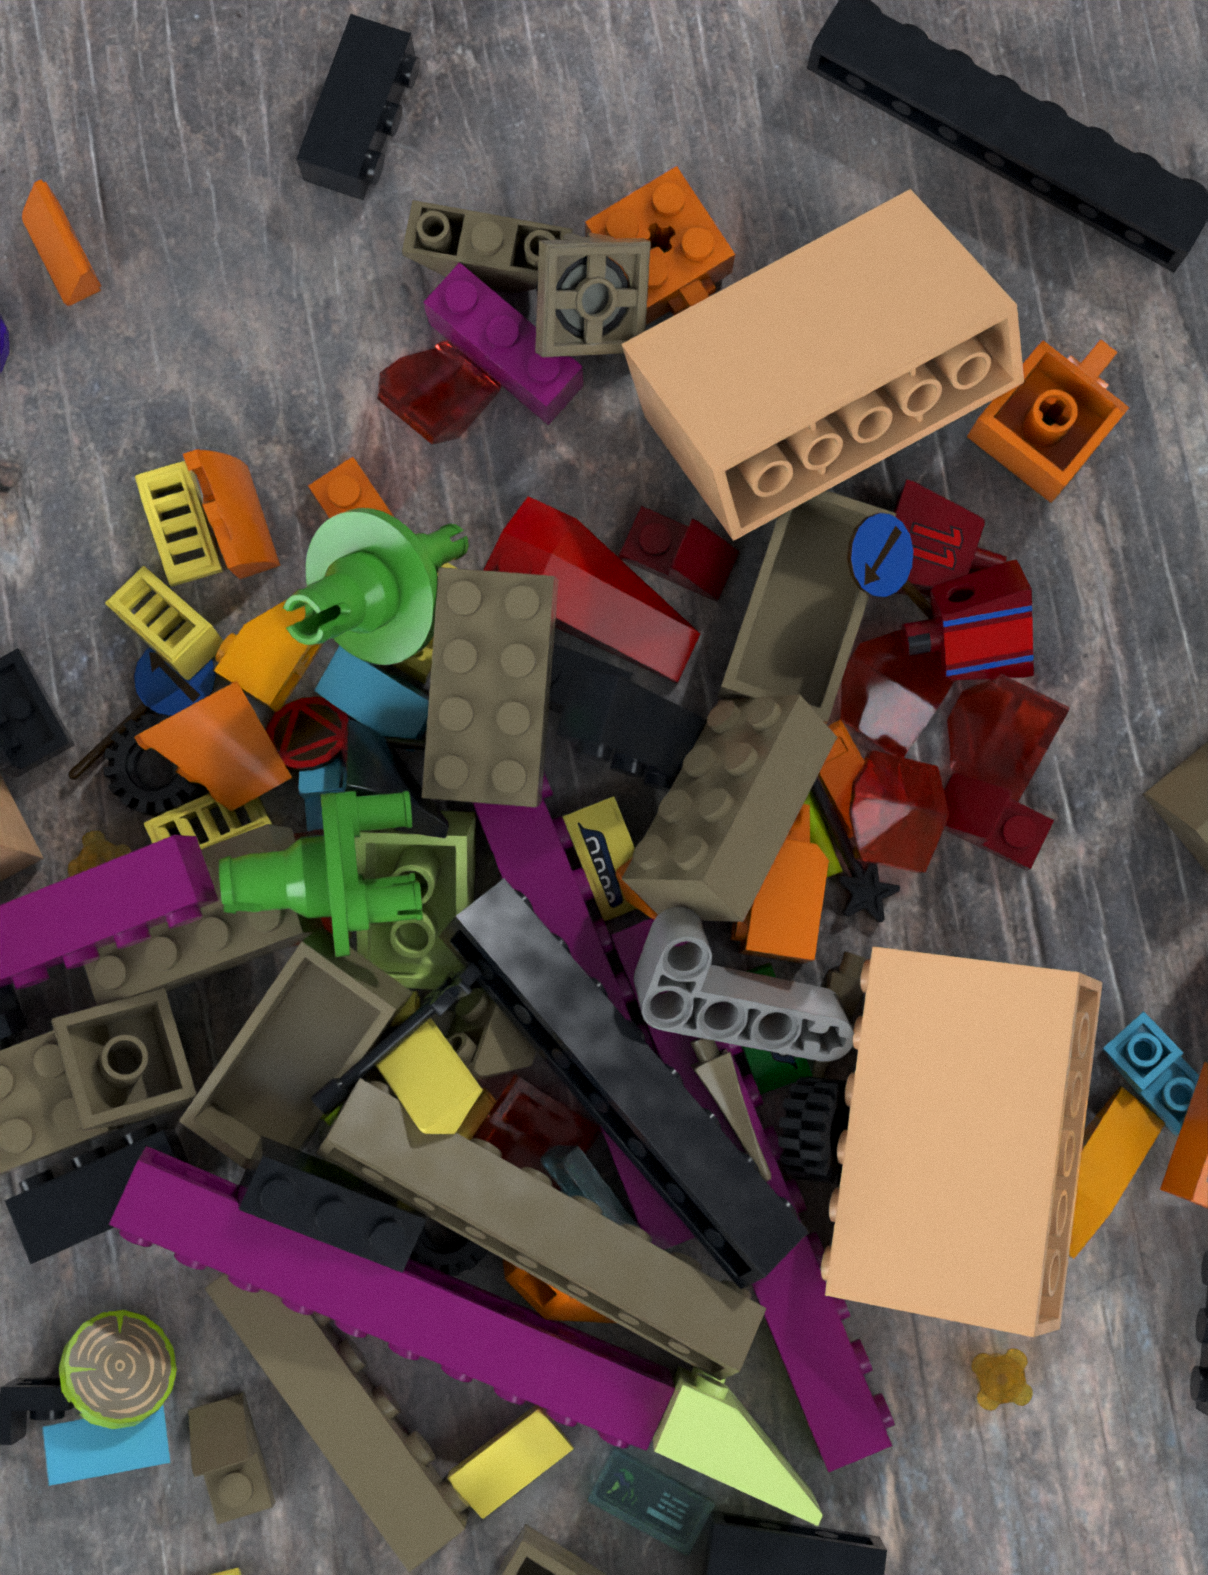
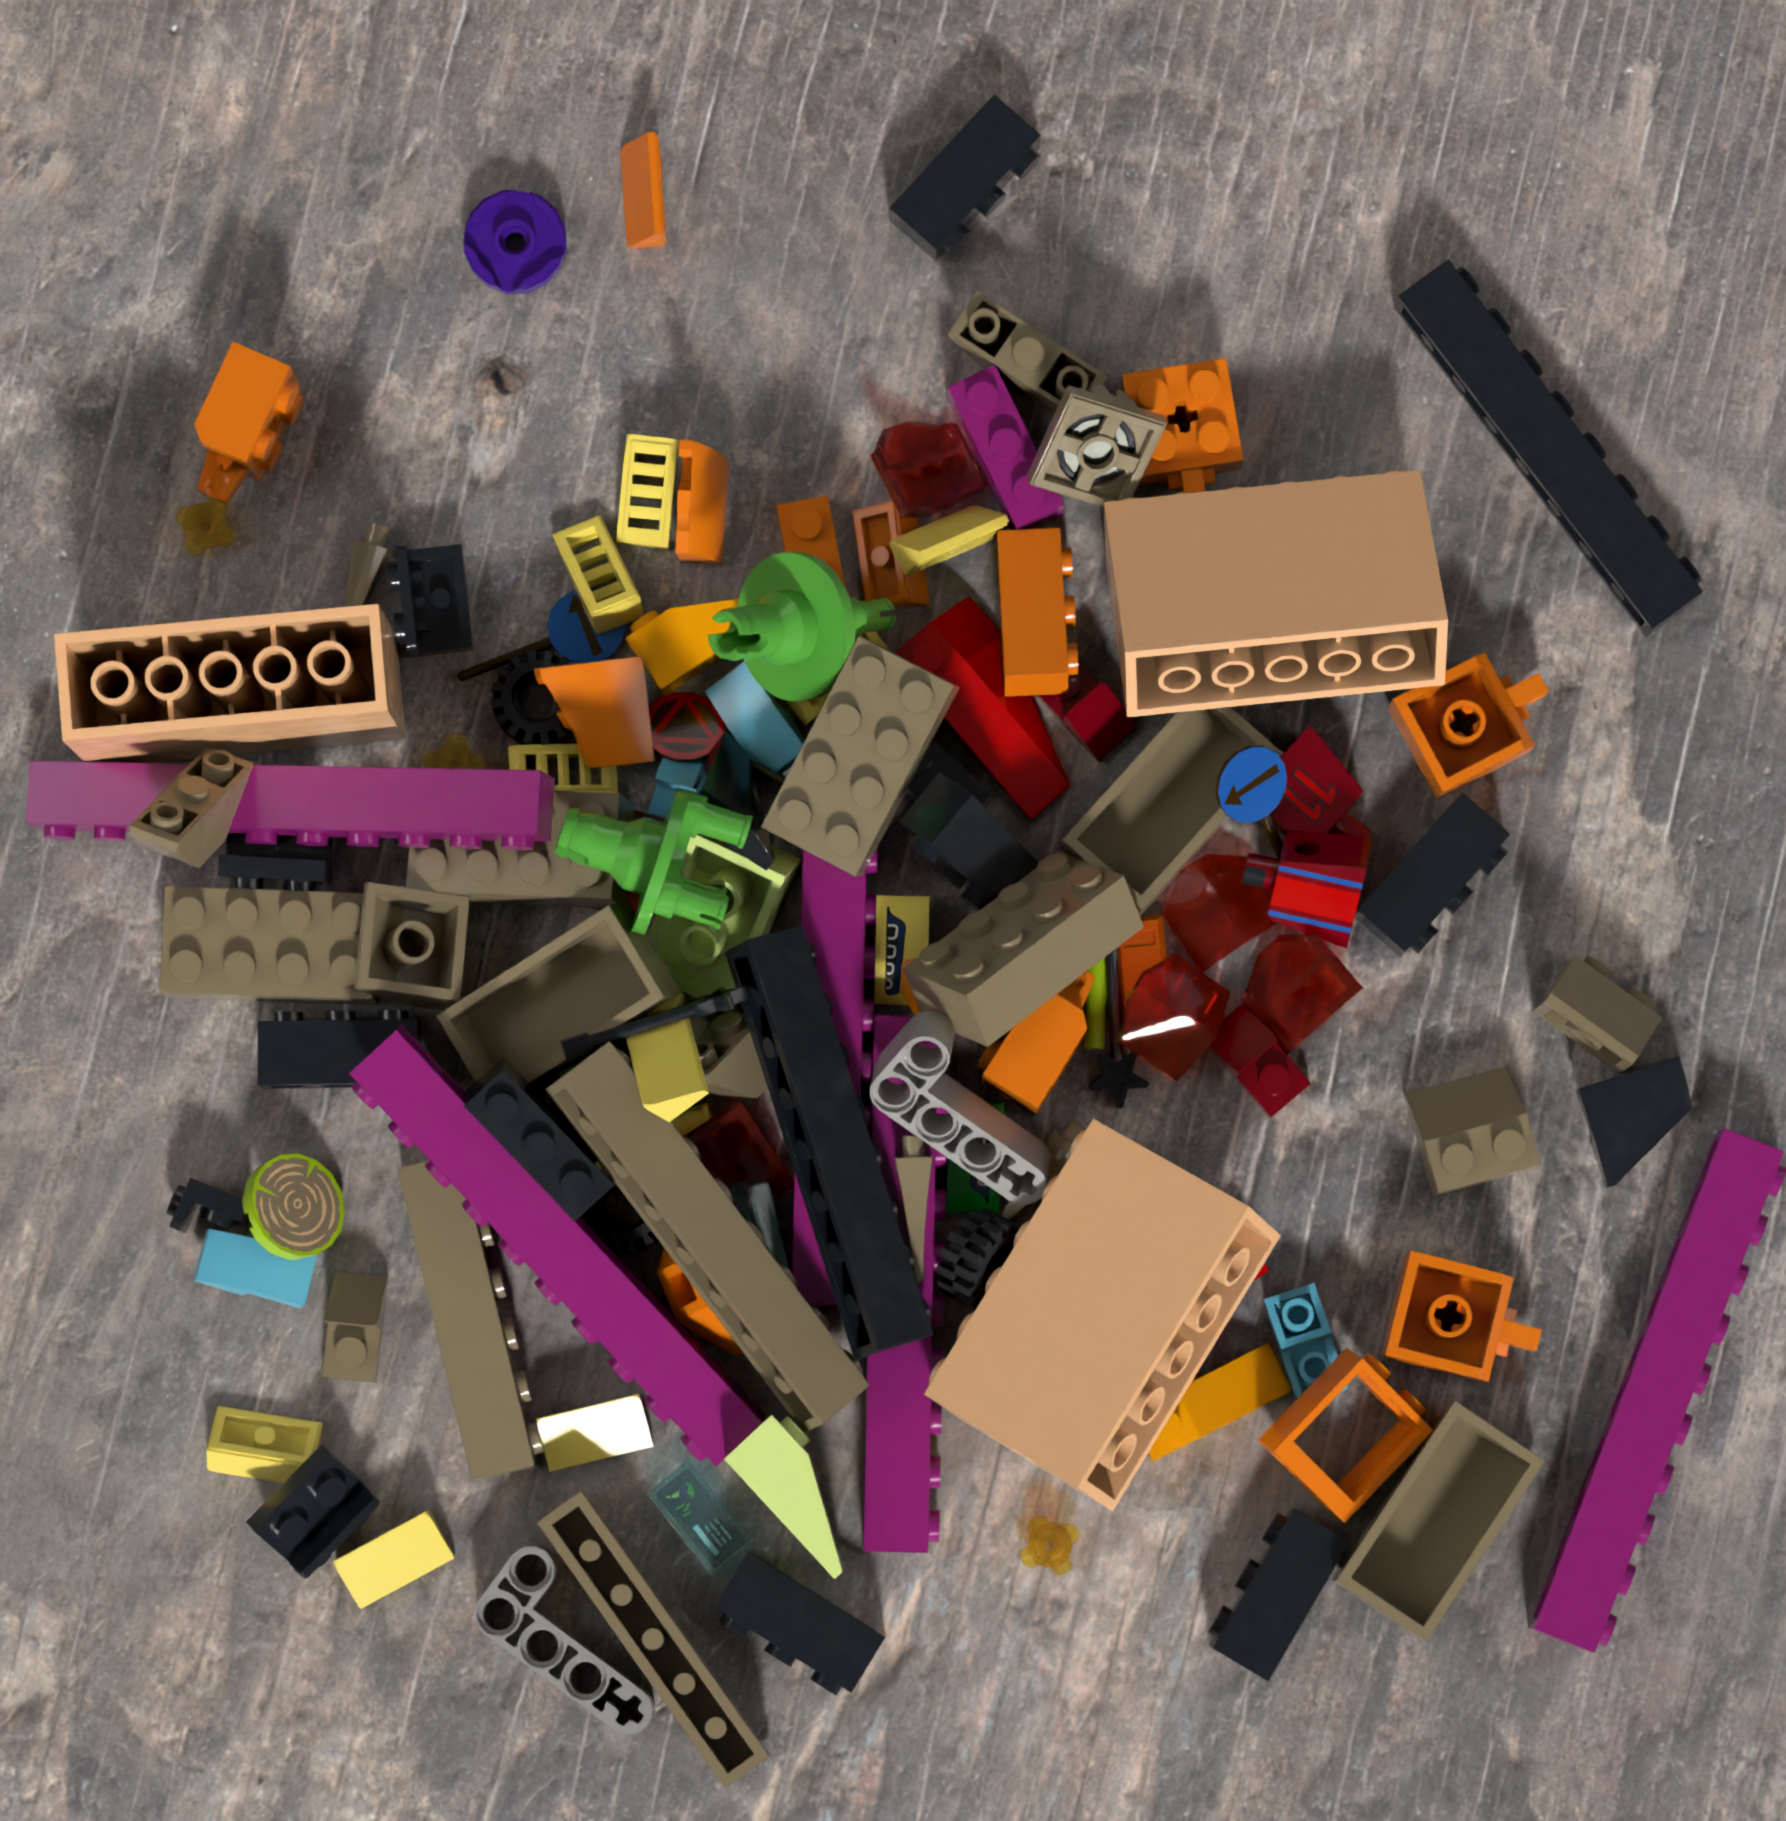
camera: 25 degrees right, 0 degrees up
(437, 487) = (878, 565): none -> orange slope
(484, 448) = (947, 538): none -> light yellow slope
(598, 481) = (1035, 612): none -> orange brick
(1084, 573) = (1433, 876): none -> black brick

